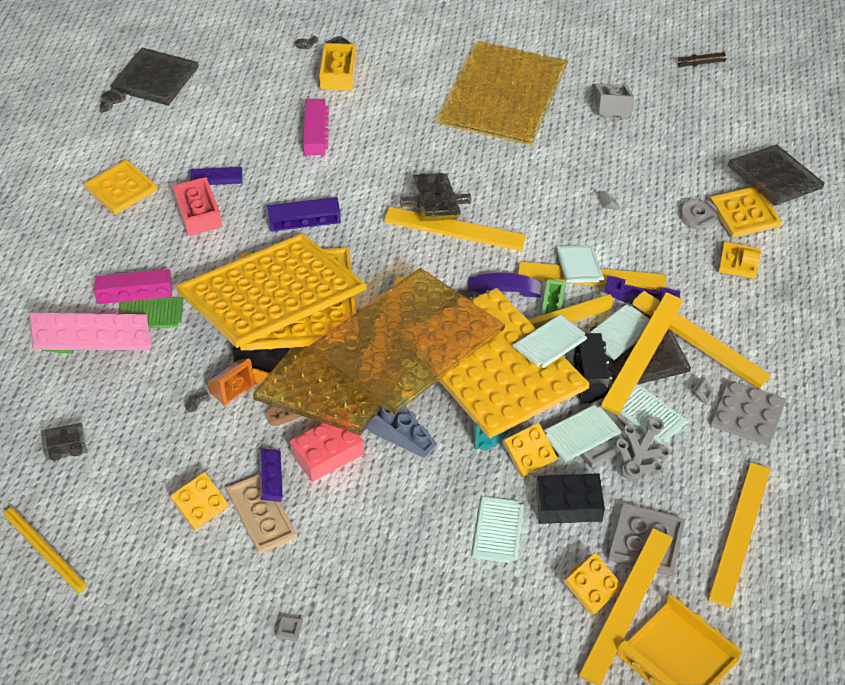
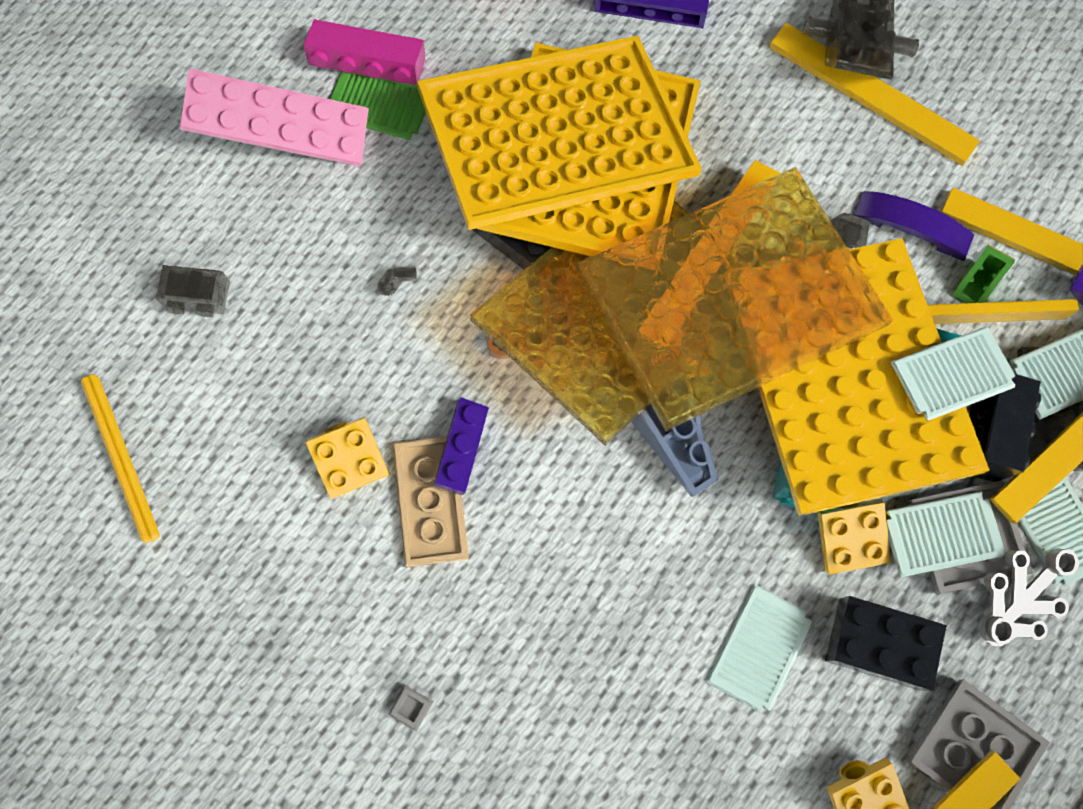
camera: 20 degrees right, 25 degrees up
(232, 381) = (454, 266): orange slope -> none
(259, 375) = (500, 265): light orange slope -> none
(325, 449) = (546, 433): coral brick -> none
(579, 264) = (1045, 222): light aqua window -> none

